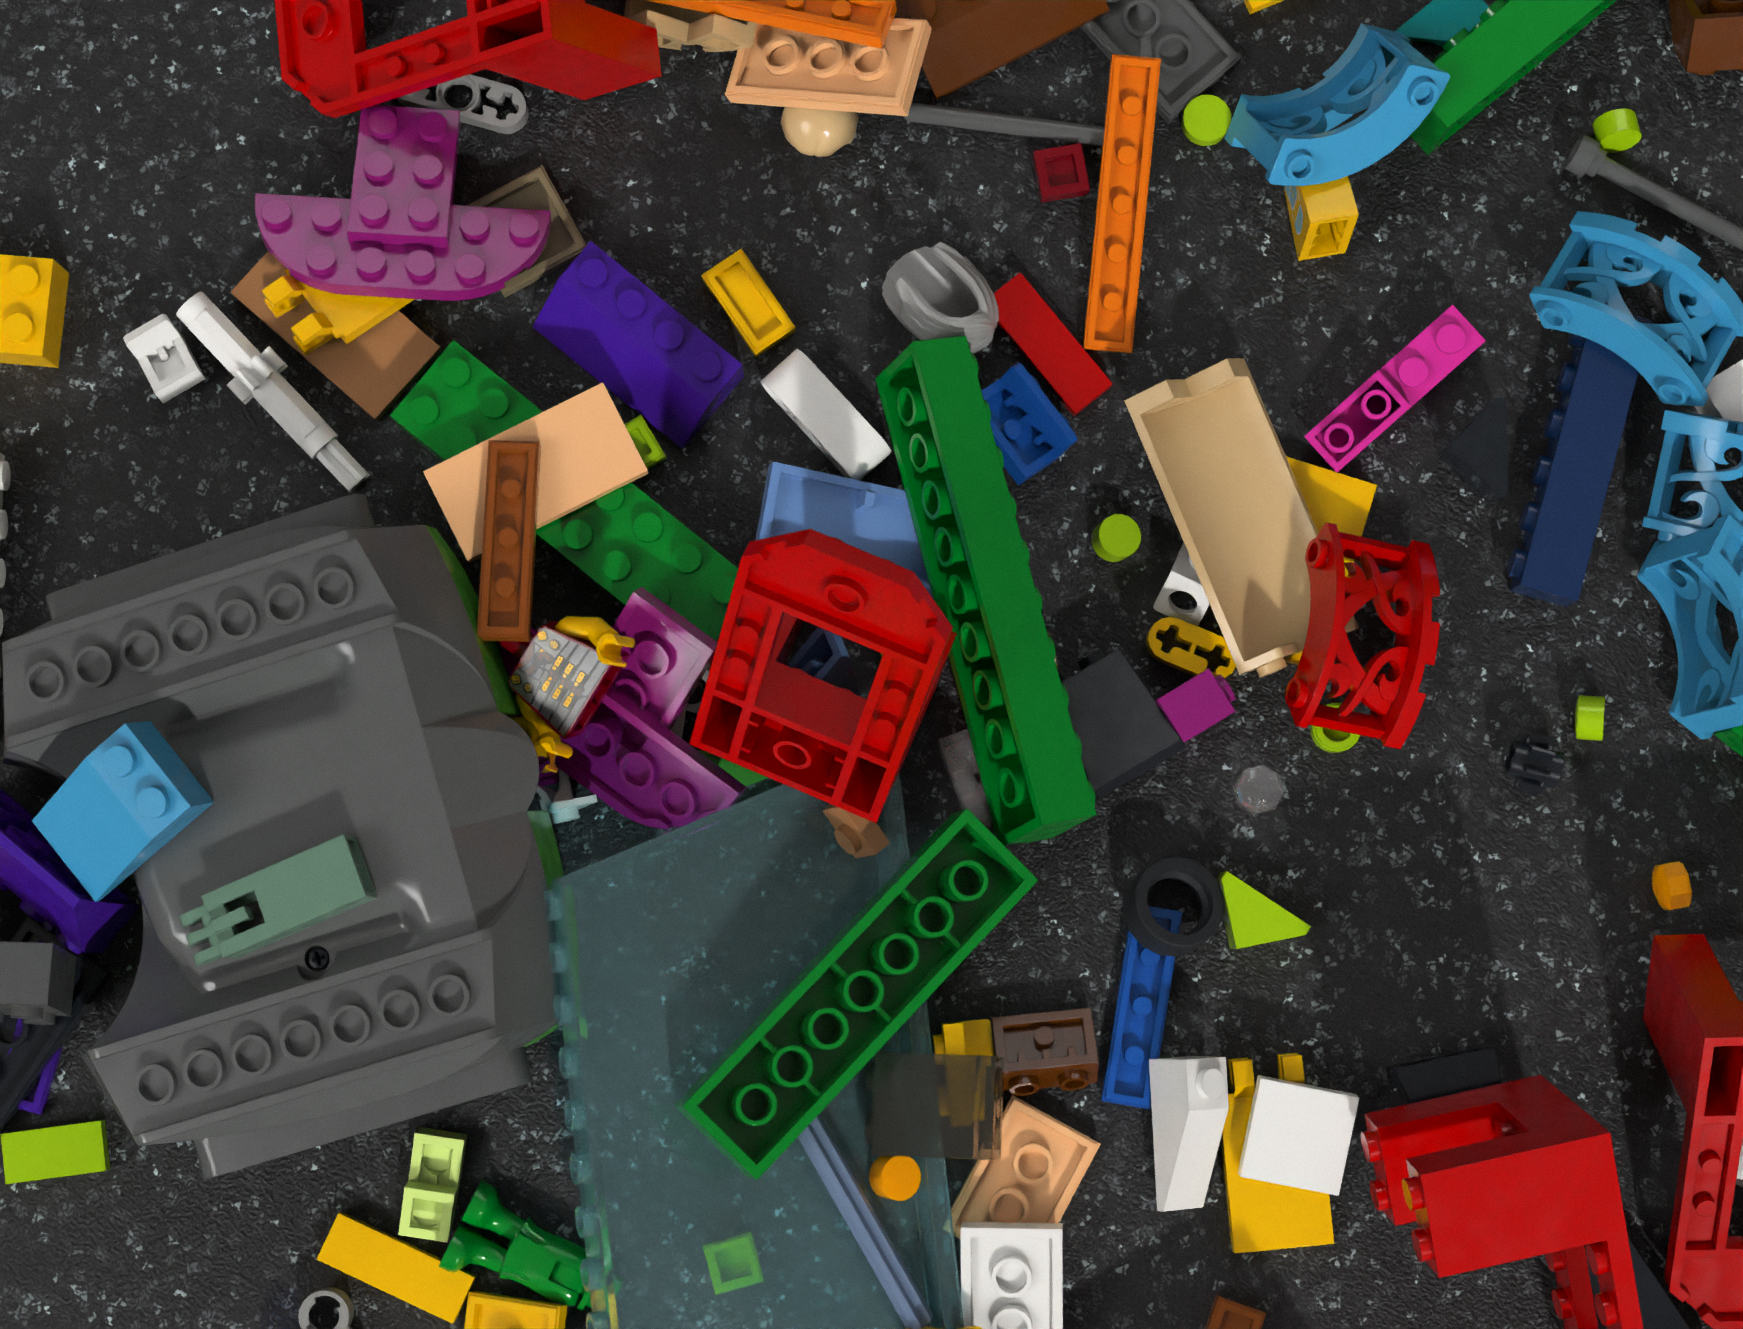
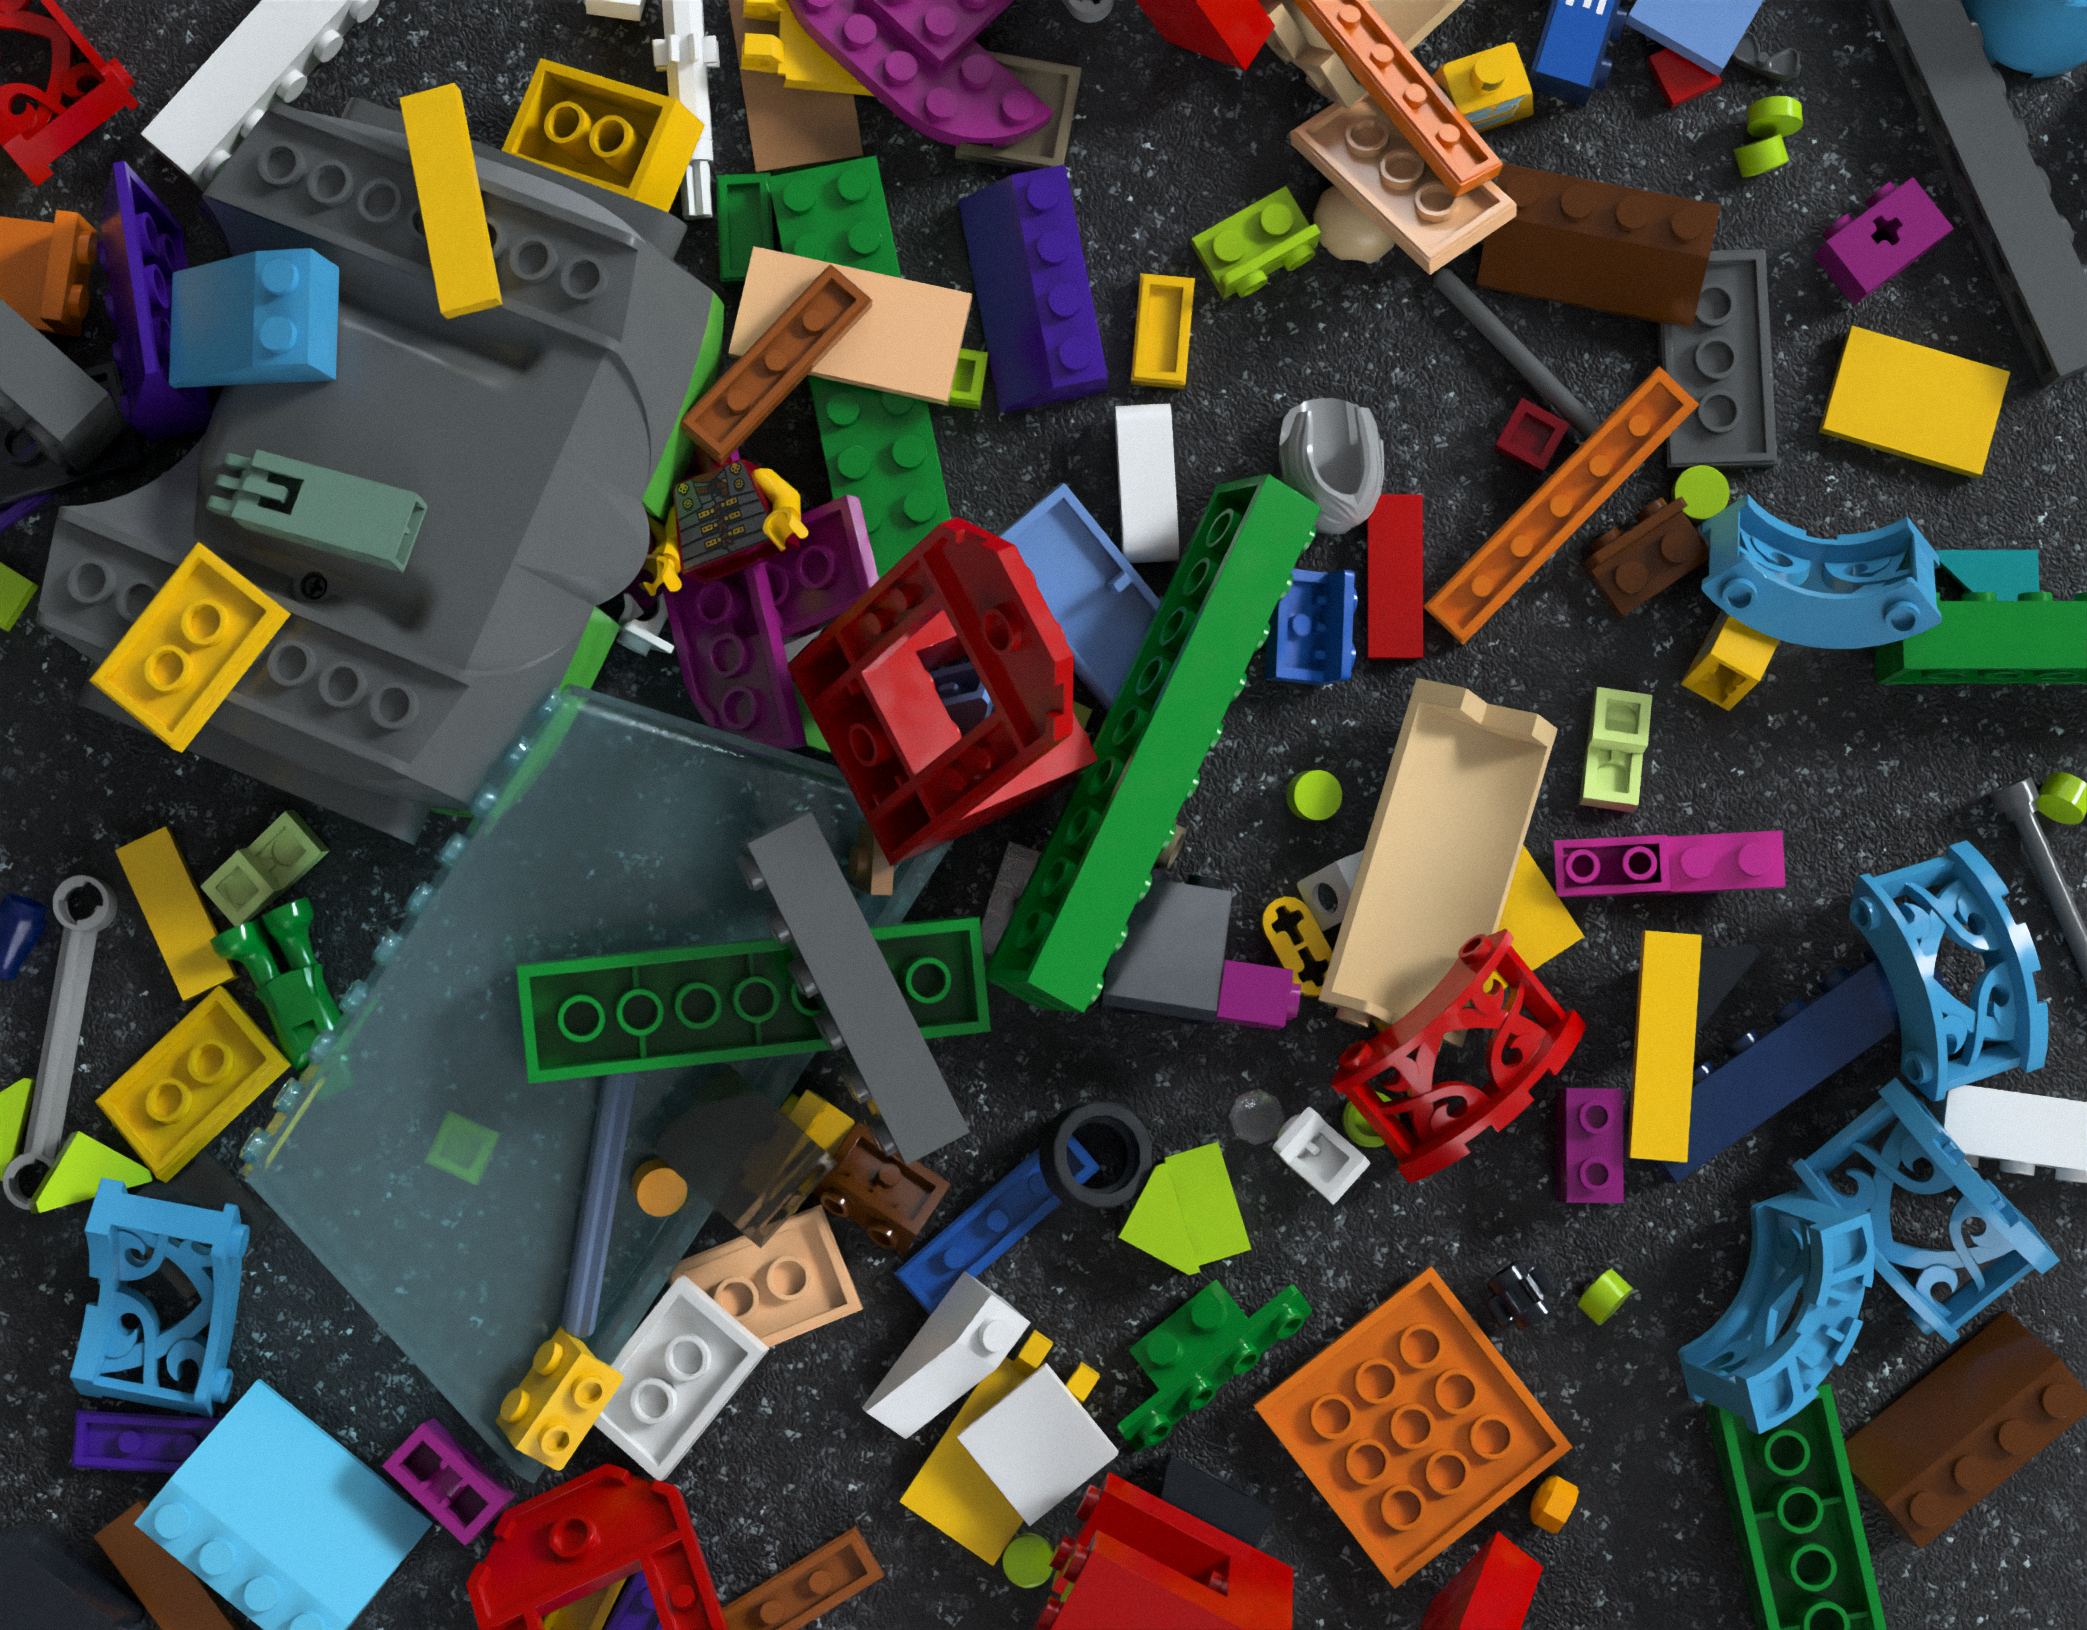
camera: 45 degrees right, 0 degrees up
(193, 610) = (450, 201): none -> yellow tile
(249, 477) = (605, 133): none -> yellow brick
(268, 1073) = (189, 647): none -> yellow tile
(396, 463) = (743, 222): none -> green tile
(763, 190) = (1256, 243): none -> lime bracket
(926, 927) = (852, 987): none -> dark grey brick
(1207, 192) = (1647, 557): none -> reddish brown bracket
(1274, 874) = (1208, 1203): none -> lime tile
(1292, 341) = (1615, 749): none -> yellowish green slope
(1323, 779) = (1319, 1154): none -> white bracket
(1352, 980) = (1201, 1351): none -> green bracket
(1354, 1219) = (1027, 1560): none -> lime piece
(1495, 515) = (1664, 1046): none -> yellow tile
(1498, 624) = (1589, 1145): none -> magenta brick
(1535, 912) = (1412, 1426): none -> orange plate

